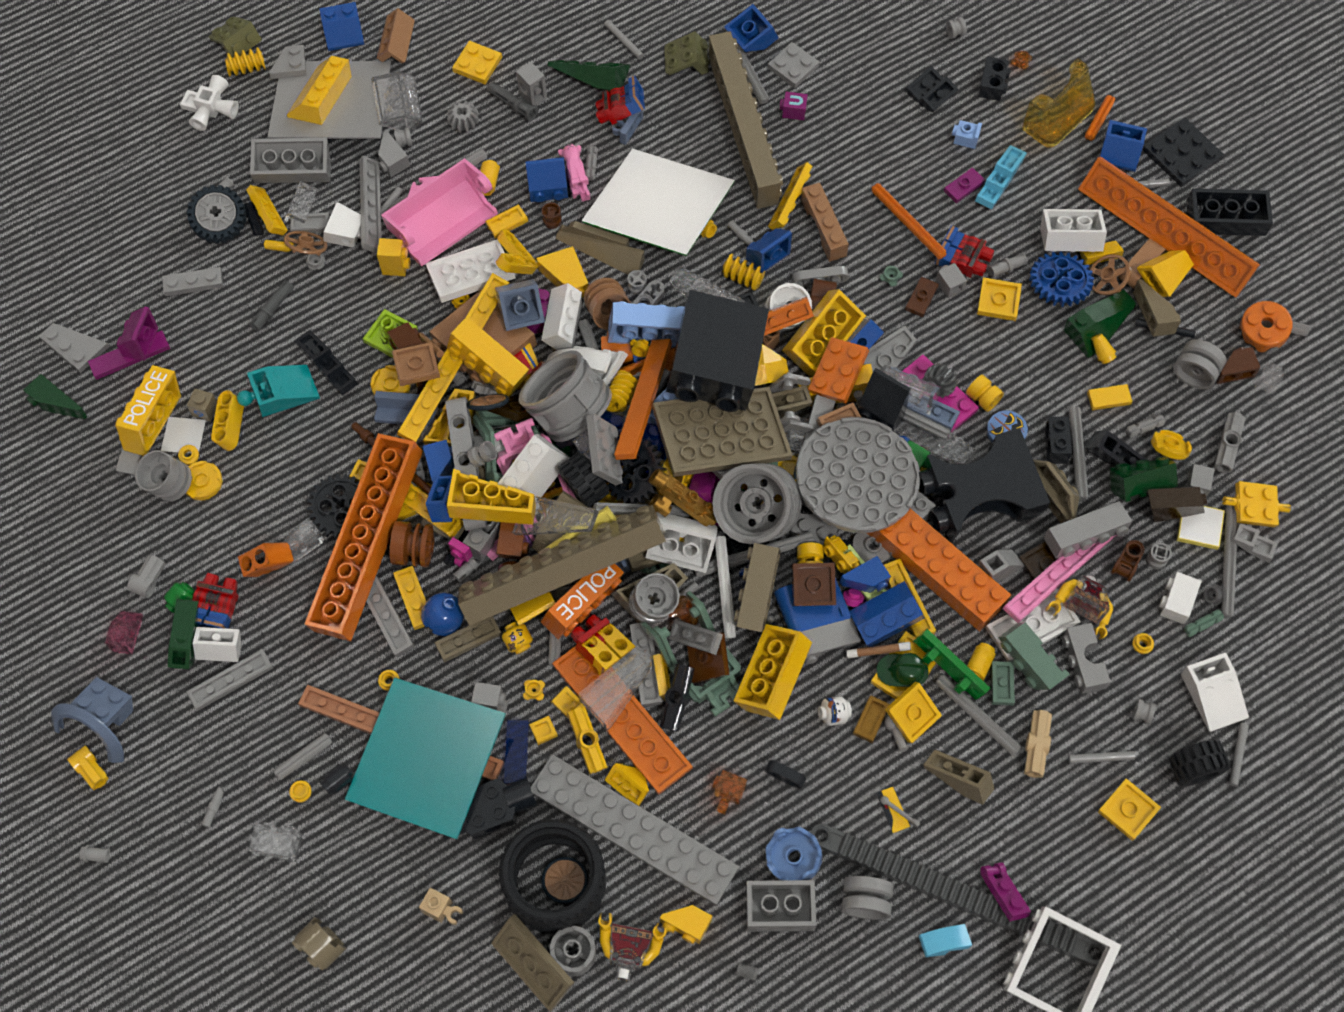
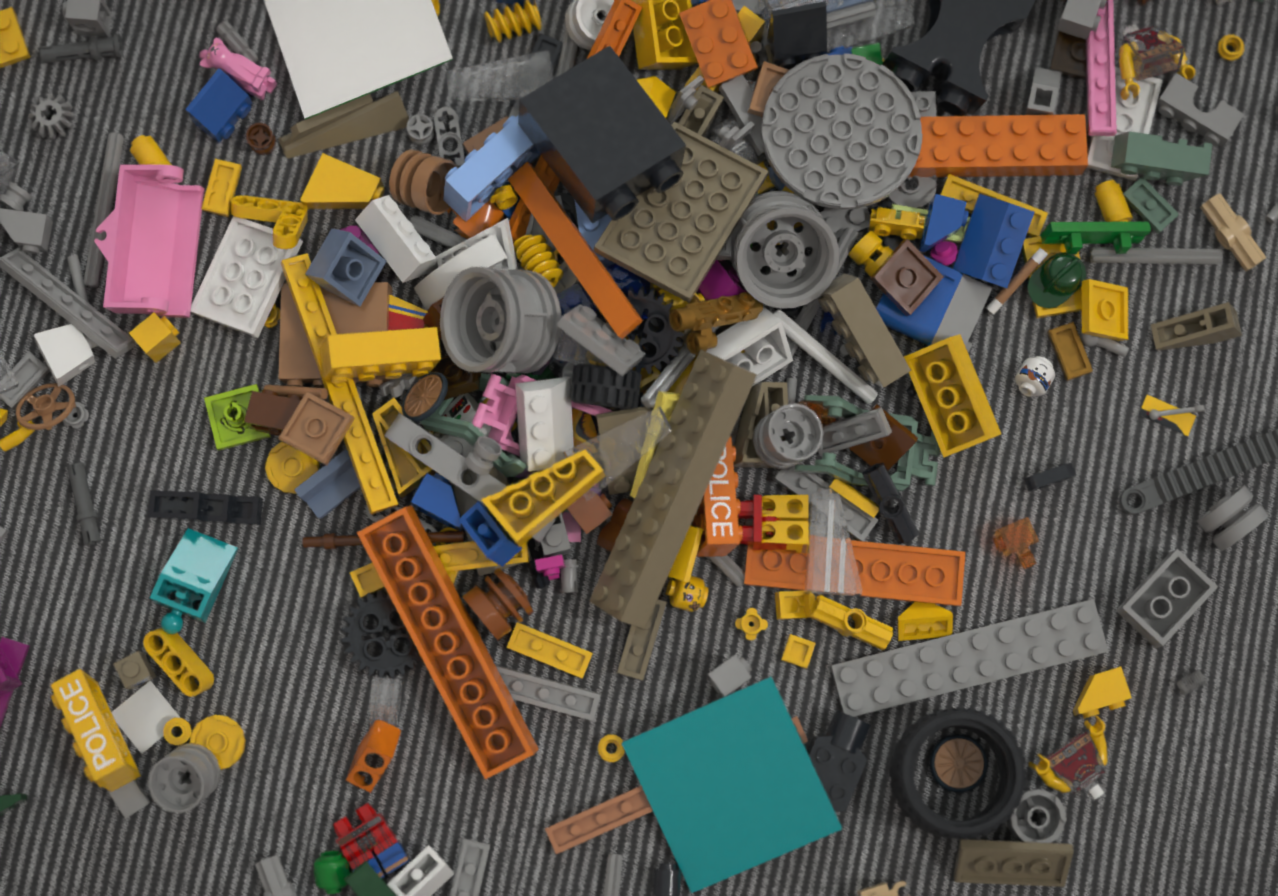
camera: 50 degrees left, 15 degrees up
(442, 614) = (596, 639): blue cylinder -> none
(516, 750) = (798, 696): clear blue tile -> none
(789, 840) = (1152, 547): medium blue plate -> none

